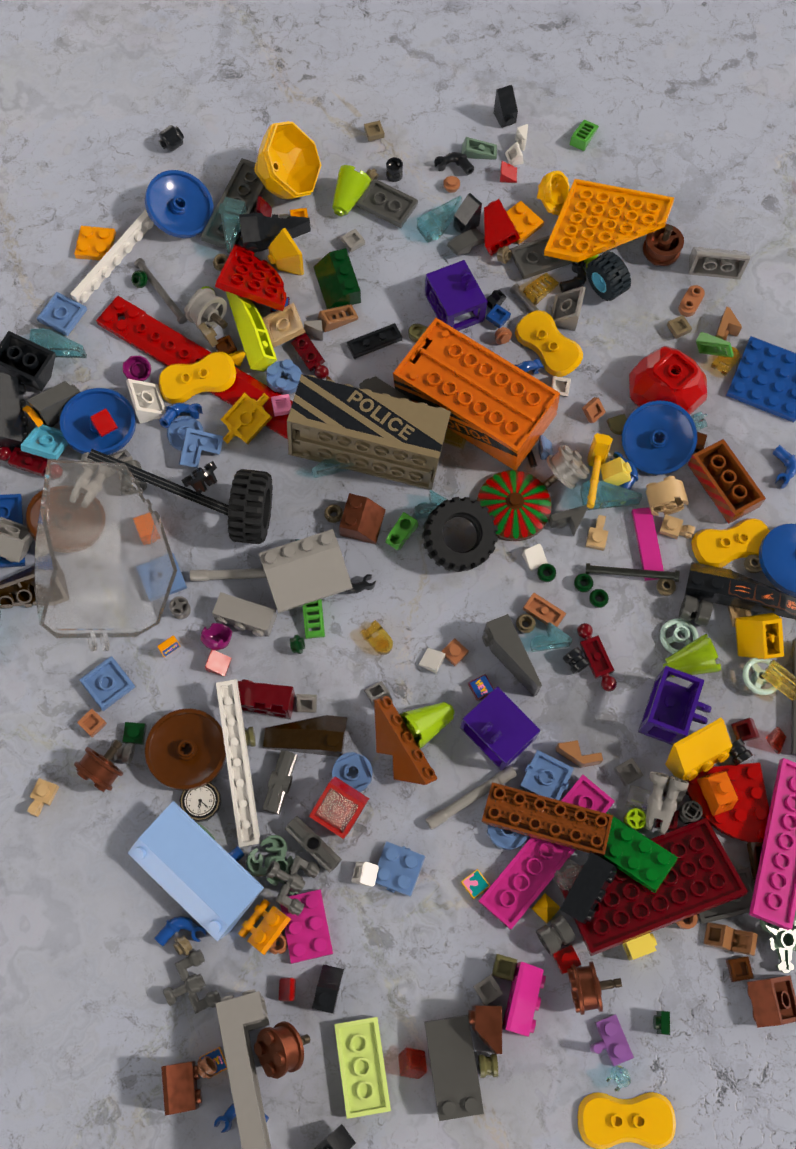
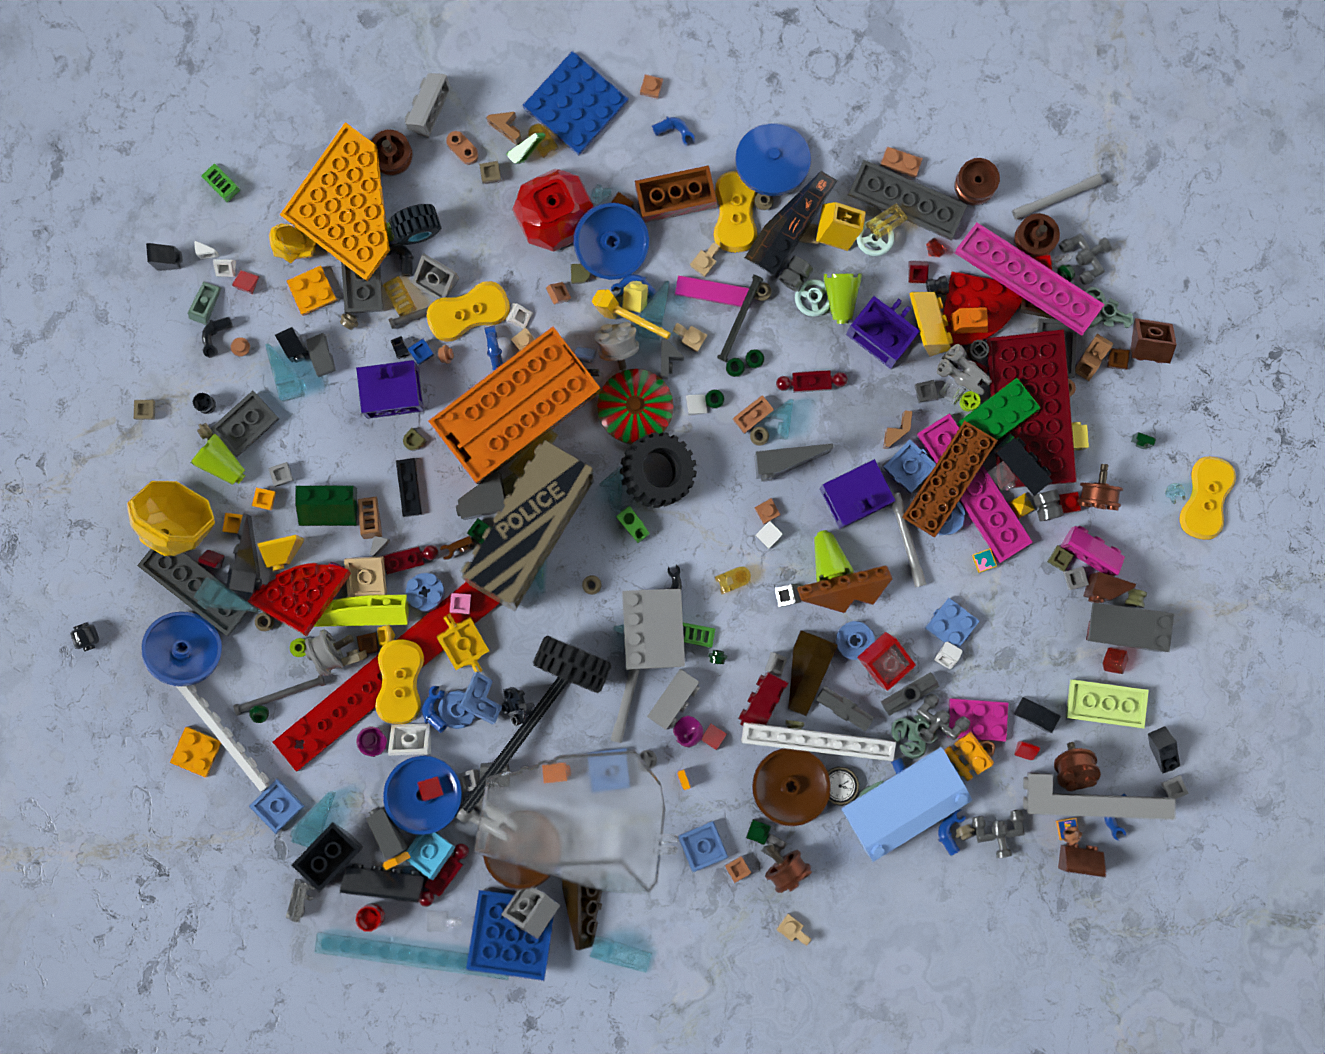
camera: 70 degrees left, 15 degrees up
(327, 233) = (263, 499): none -> light orange plate
(361, 519) = (608, 558): copper slope -> none
(481, 687) = (808, 497): tile -> none
(498, 227) = (316, 316): red slope -> none
(576, 660) = (810, 401): black wheel -> none
(612, 1040) = (1143, 487): medium lavender plate -> none
(666, 496) = (676, 257): tan brick -> none

